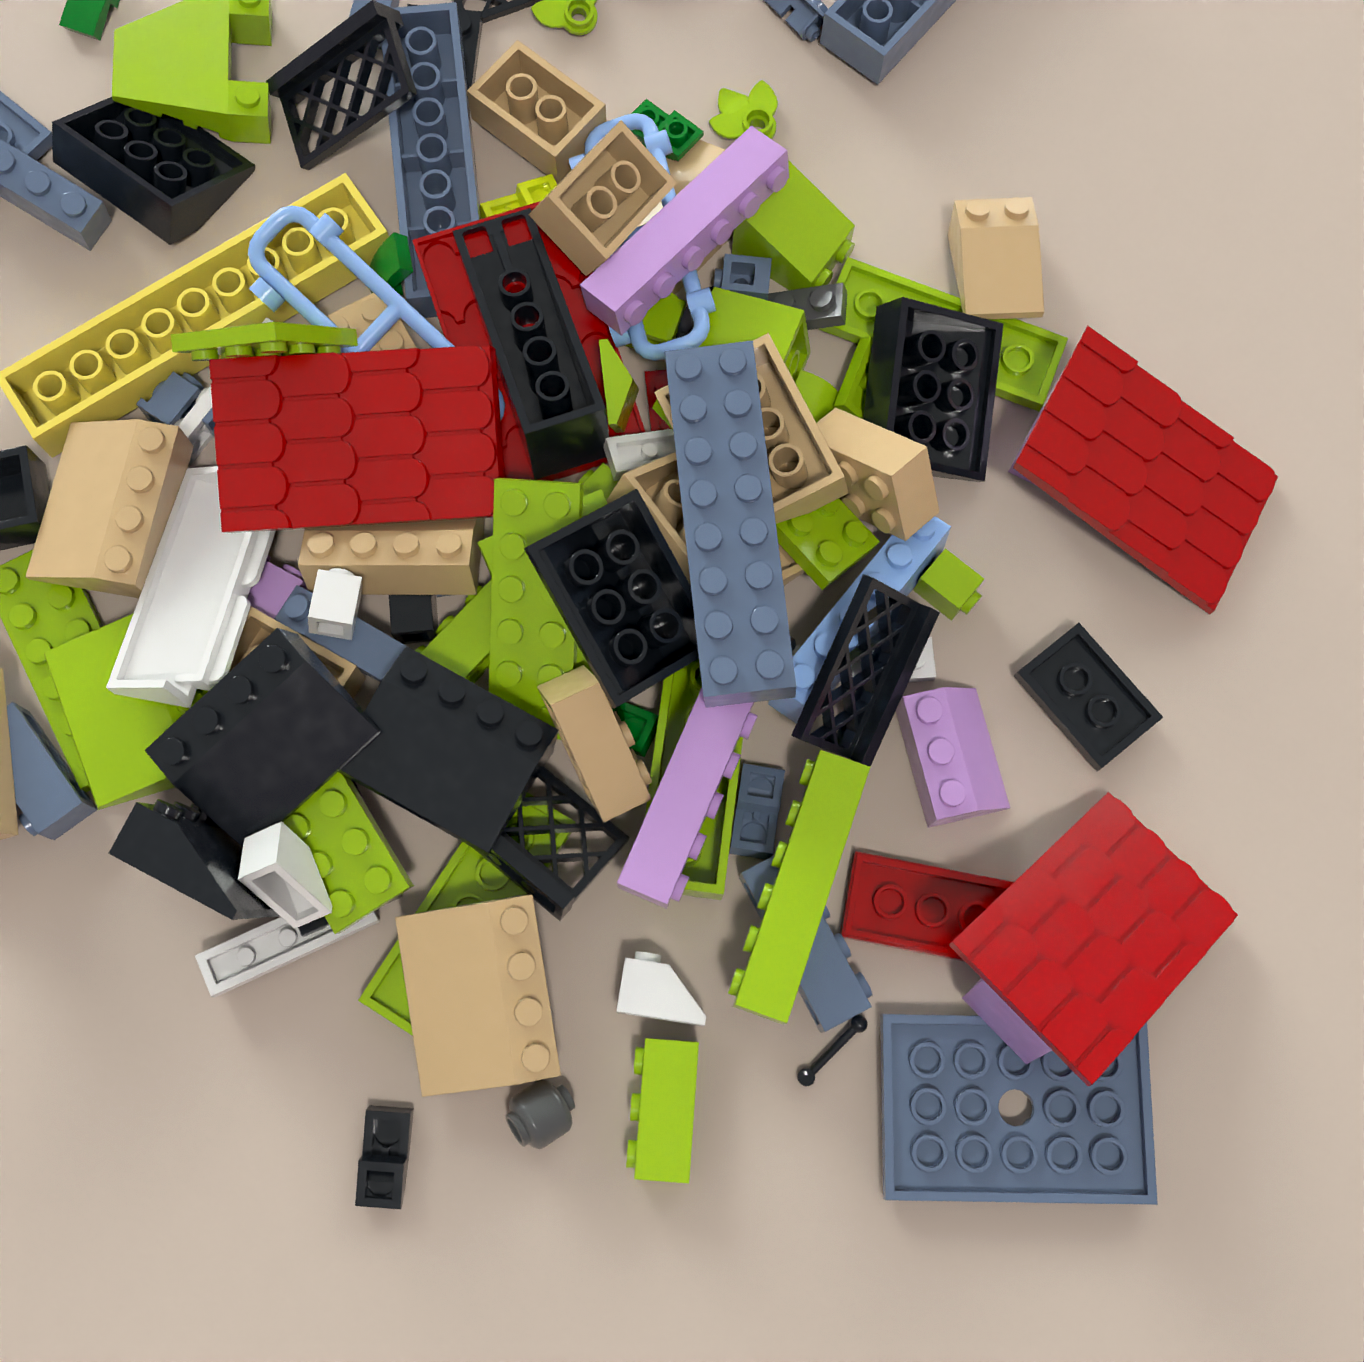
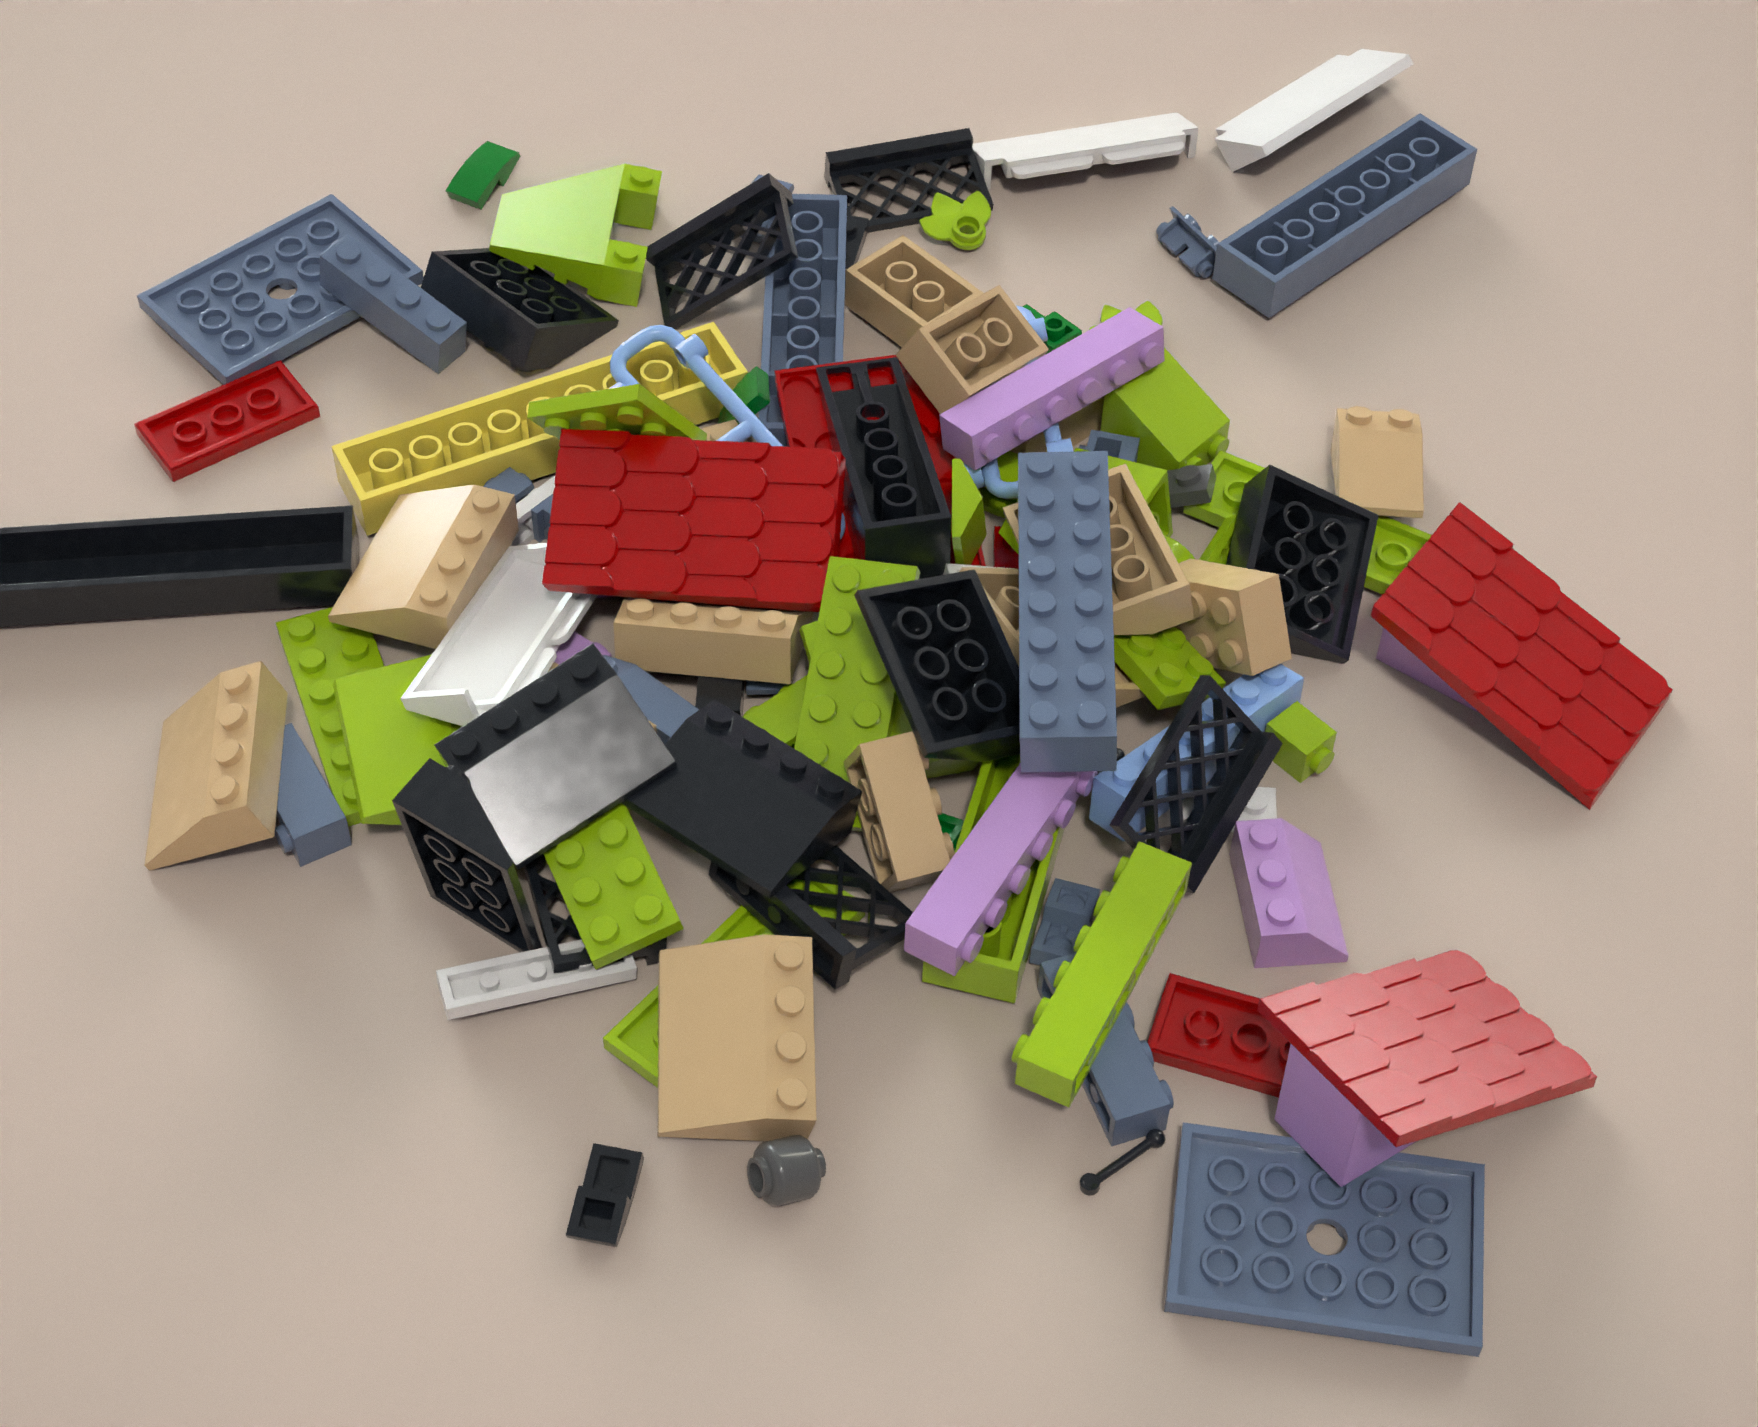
camera: 10 degrees right, 25 degrees down
(284, 875) = (554, 887): white slope -> none
(335, 603) = (646, 660): white brick -> none
(656, 992) = (933, 1075): white slope -> none
(664, 1110) = (925, 1185): lime brick -> none
(1088, 696) = (1444, 861): black plate -> none

